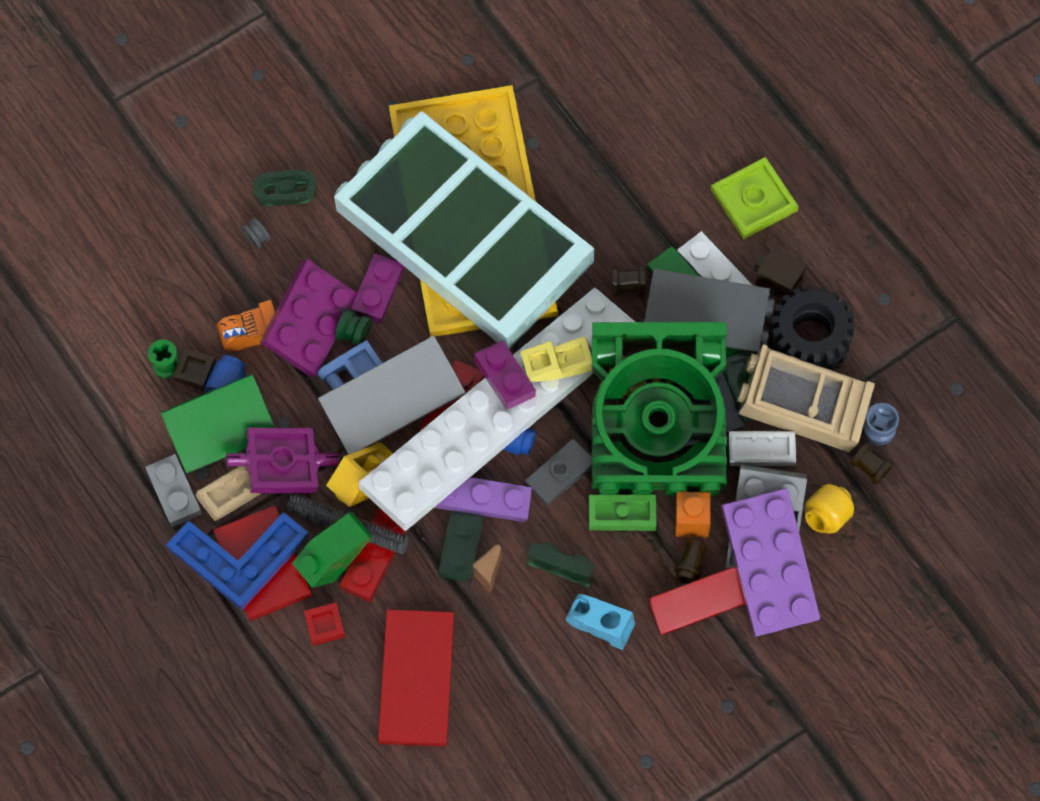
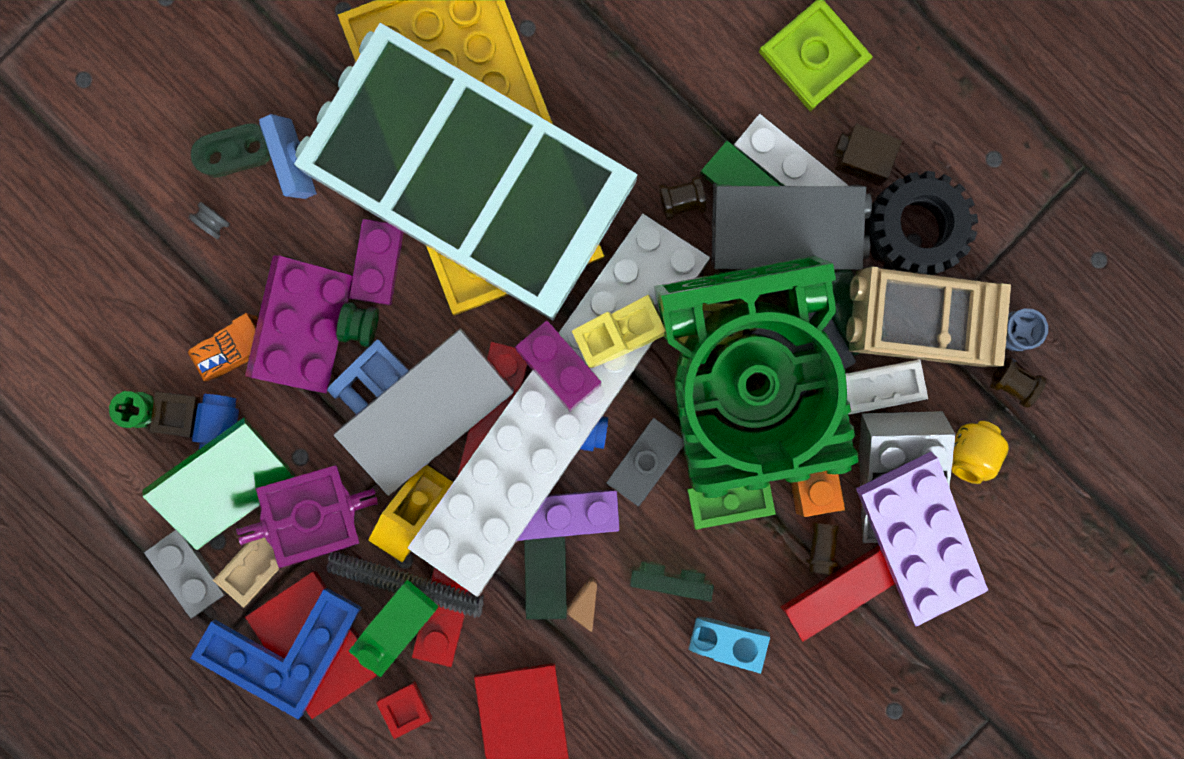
camera: 15 degrees left, 20 degrees up
(325, 191) = (282, 146): none -> medium blue plate

